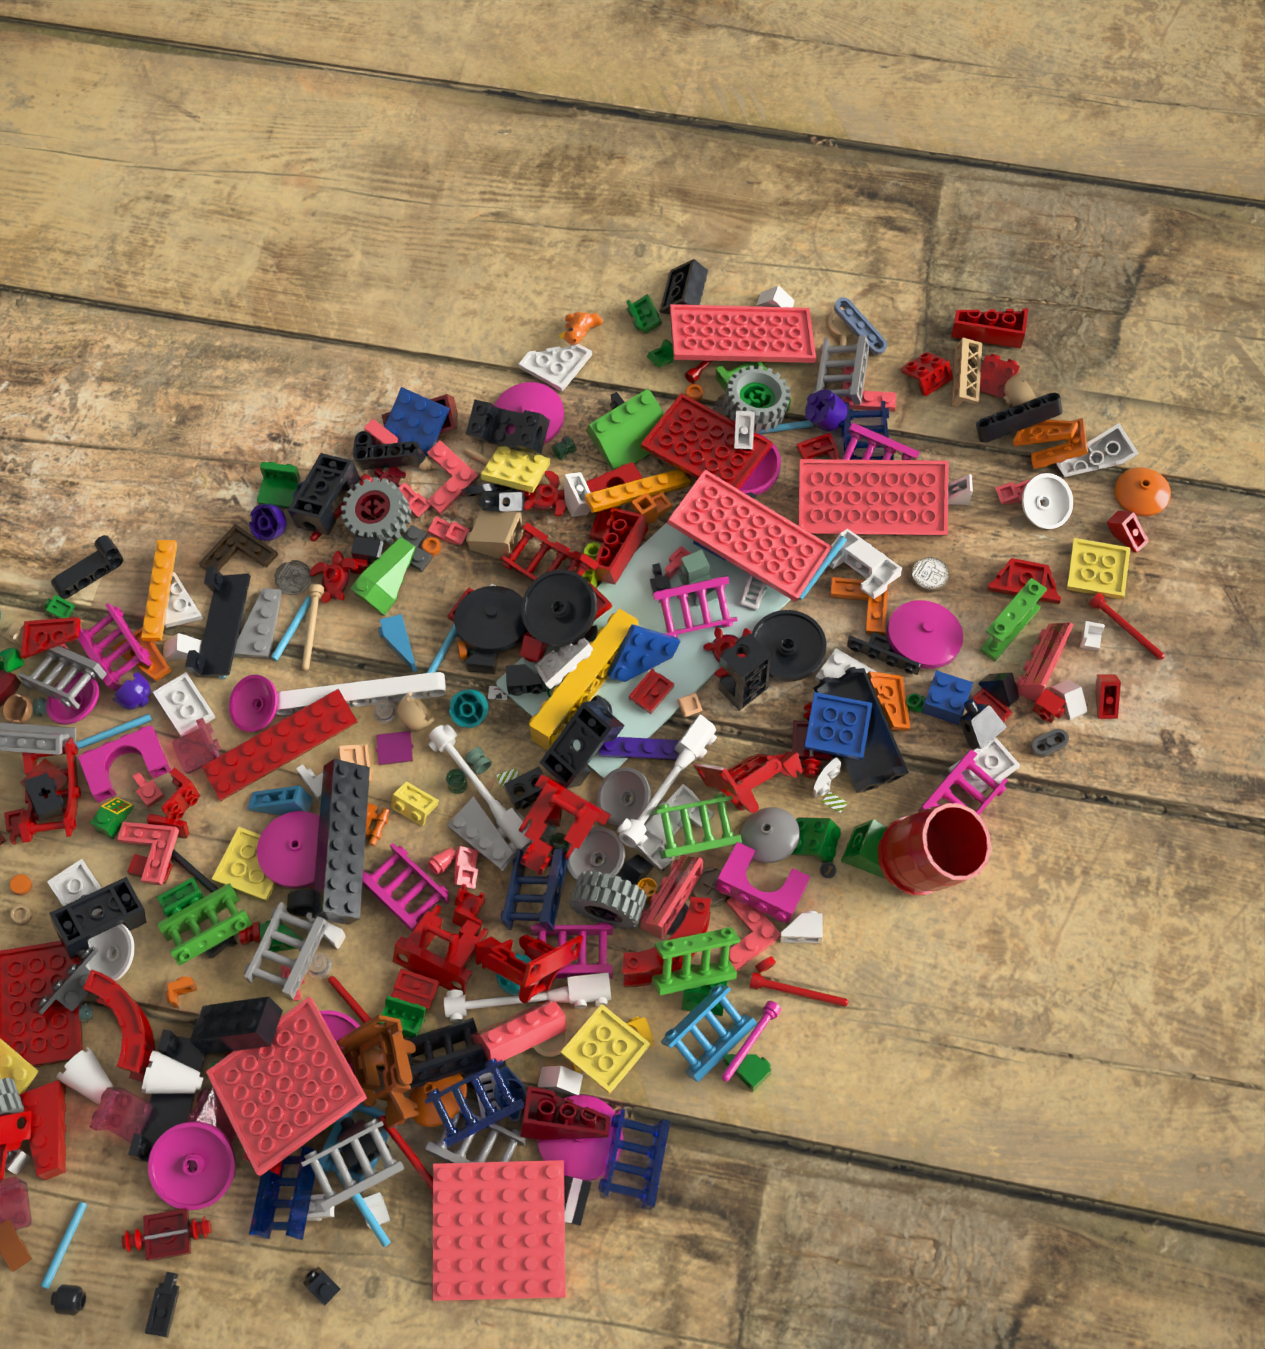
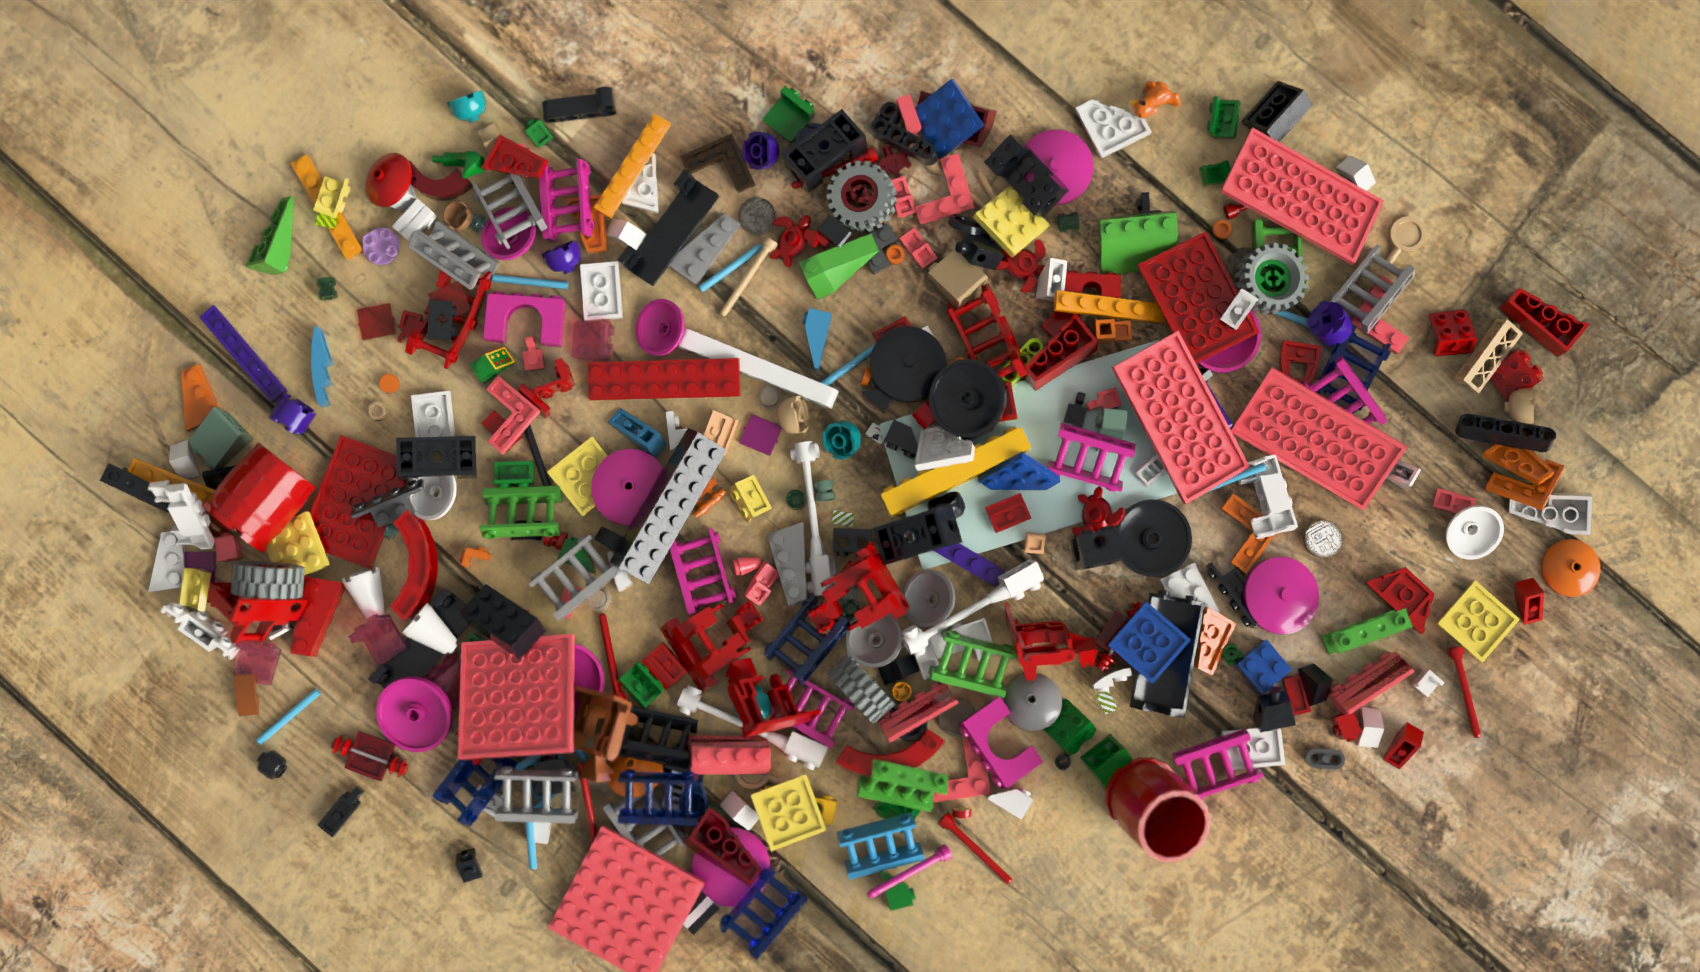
camera: 30 degrees right, 20 degrees up
(860, 325) = (1419, 249): sand blue plate -> none

